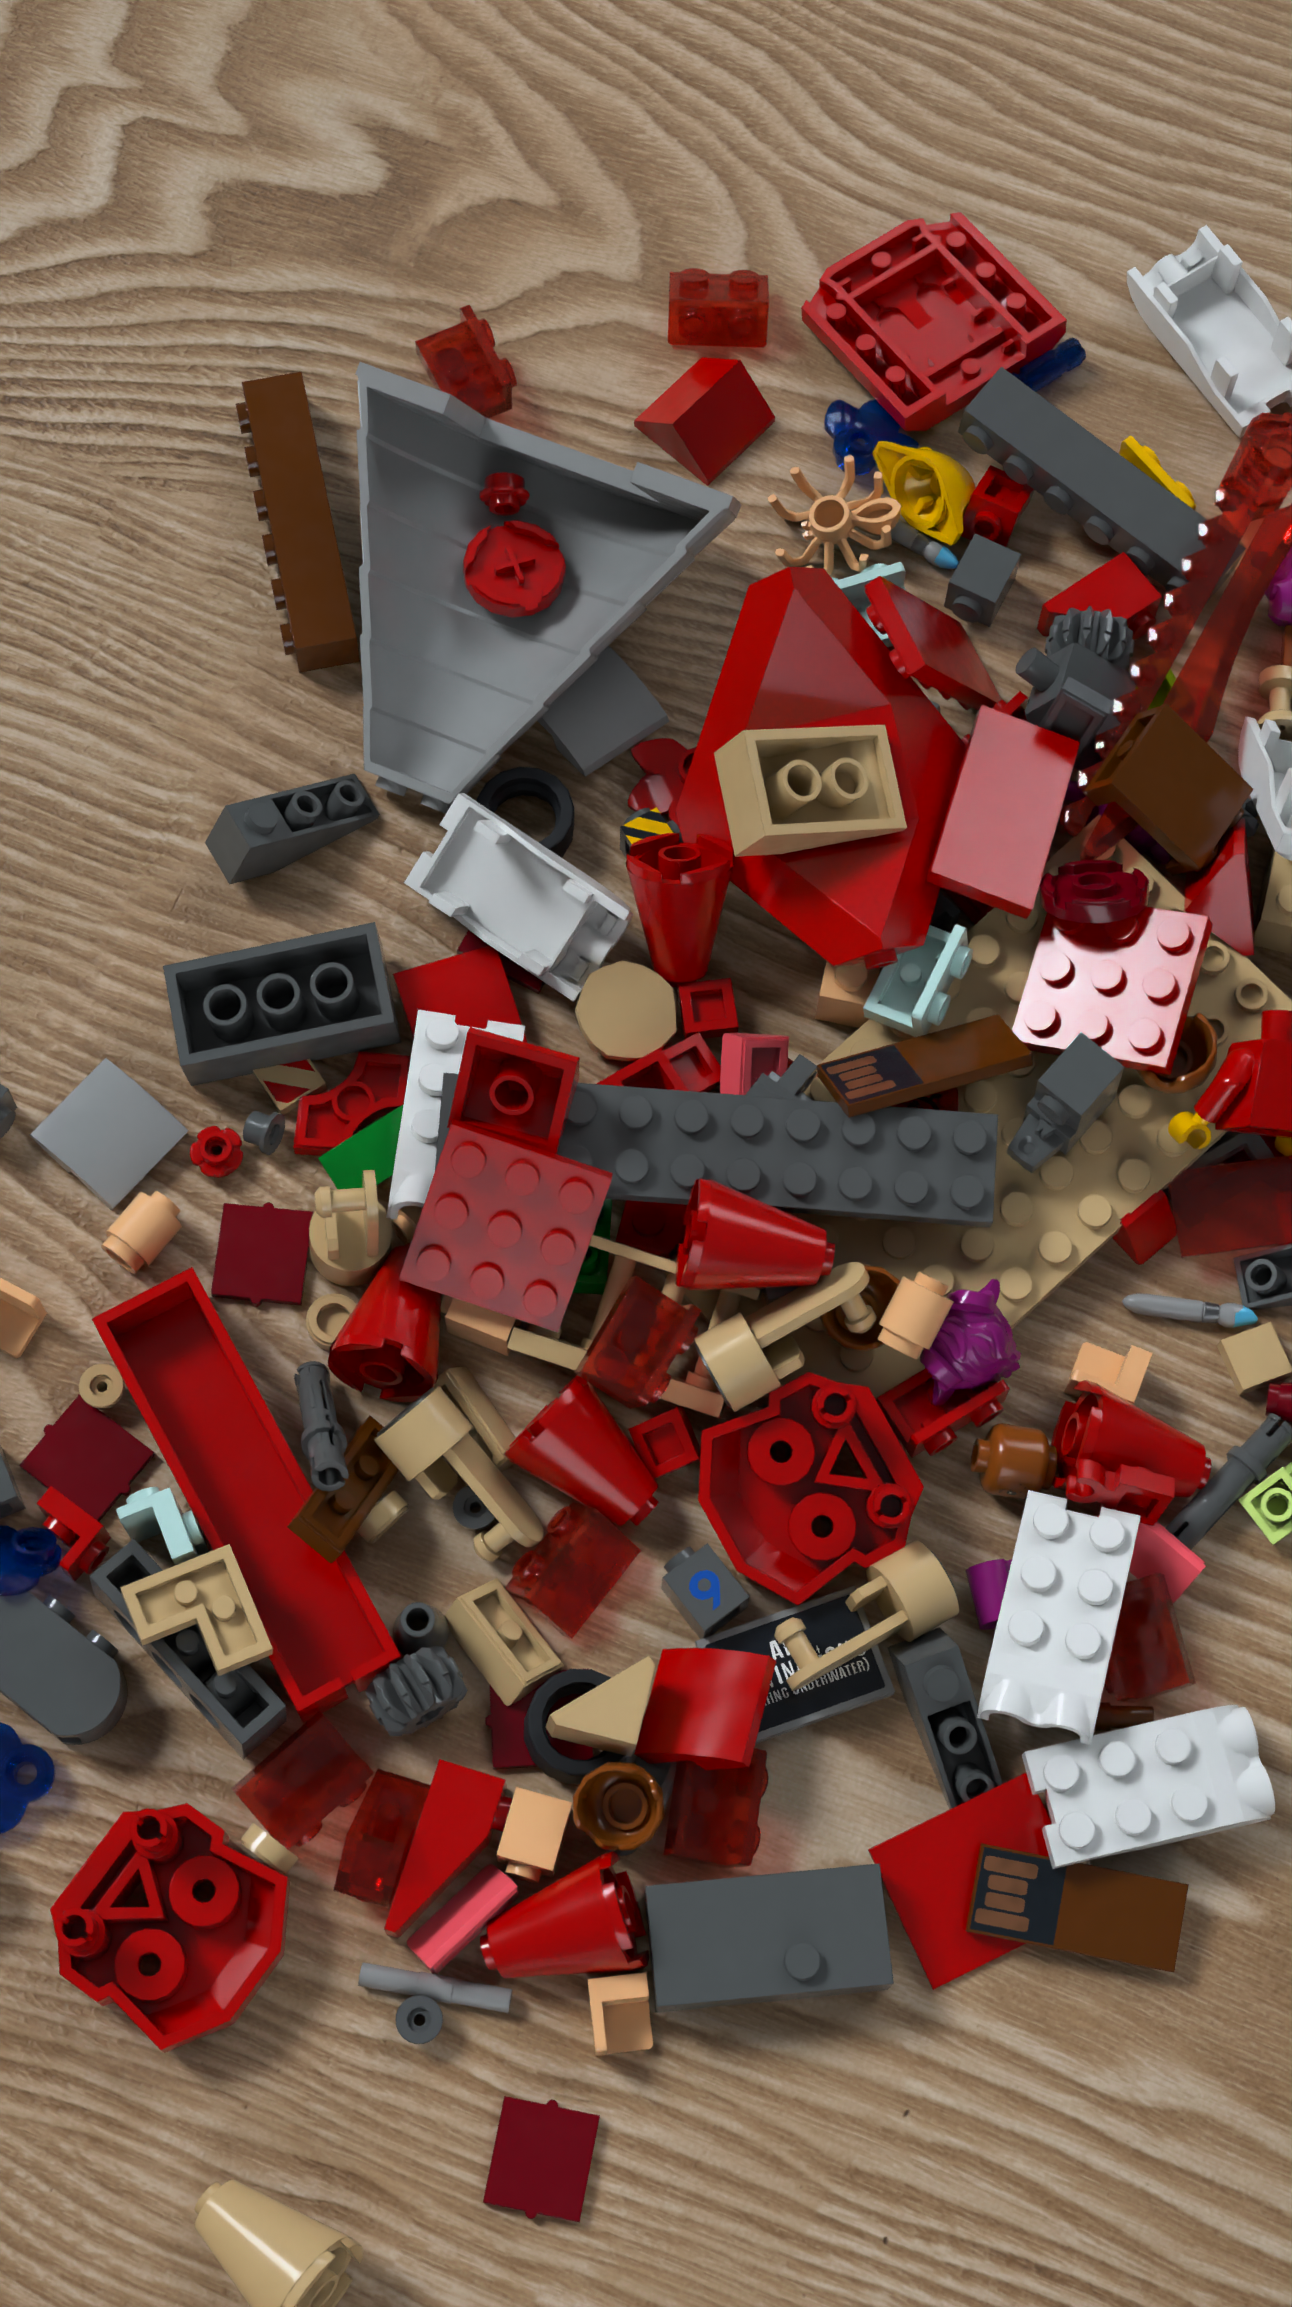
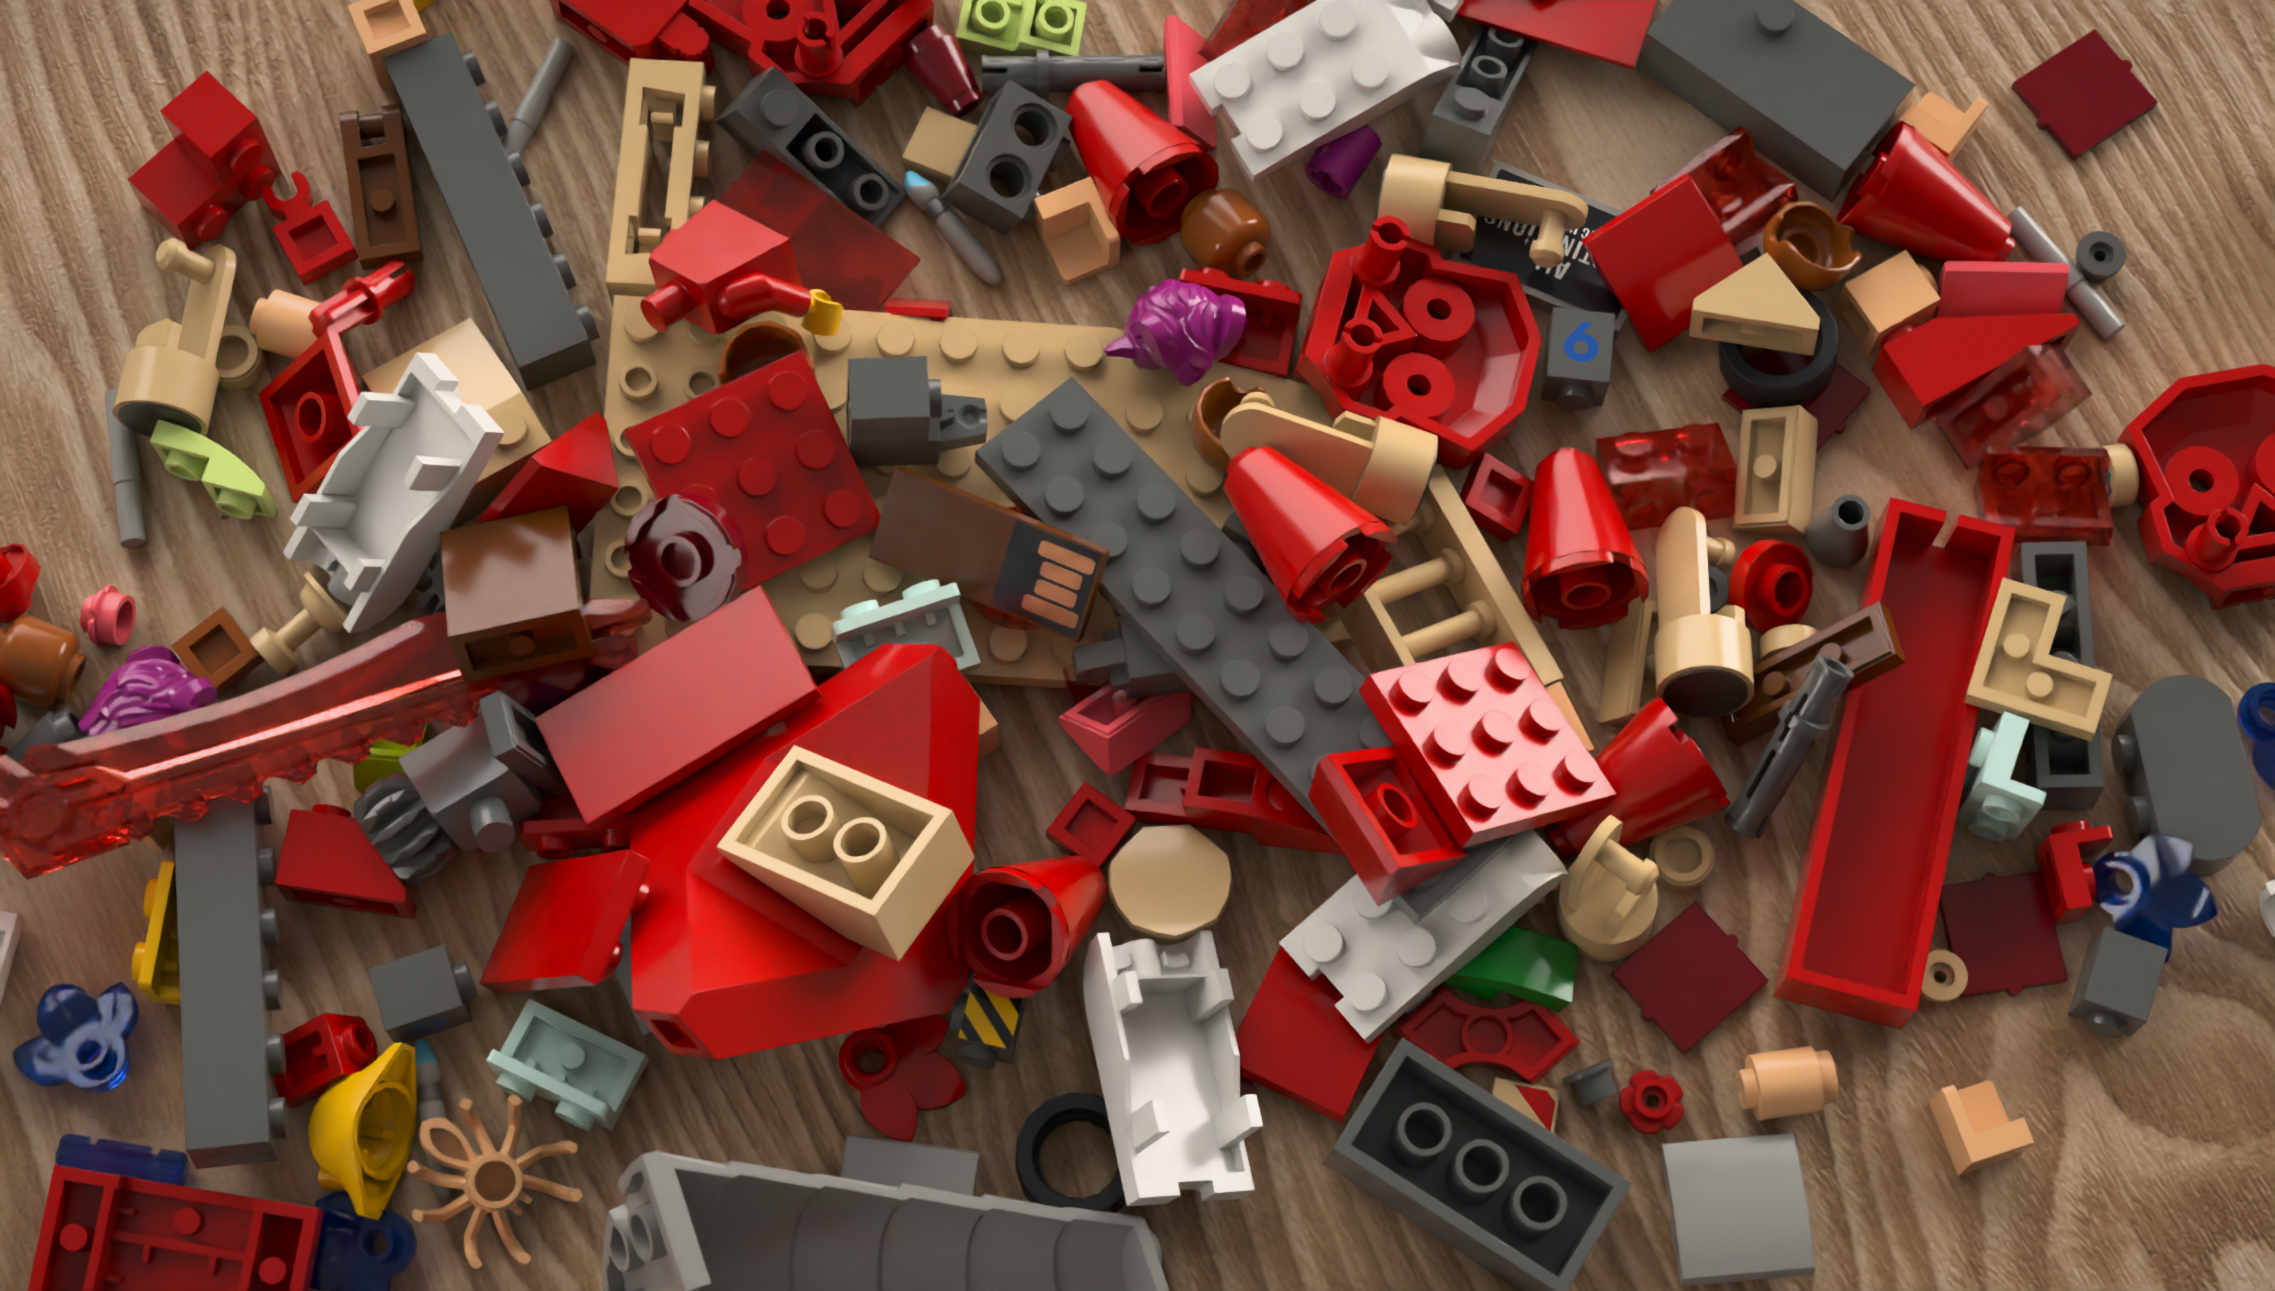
camera: 135 degrees left, 0 degrees up
(416, 1691) = (1892, 468): dark grey gear -> none
(431, 1543) = (1771, 584): none -> red plate
(638, 1344) = (1460, 555): clear red bracket -> none
(915, 1314) = (1216, 359): light nougat brick -> none
(1126, 1490) = (1173, 99): red plate -> none
(1138, 407) = (74, 1031): none -> clear blue plate
(1211, 1370) = (1000, 153): none -> dark grey brick

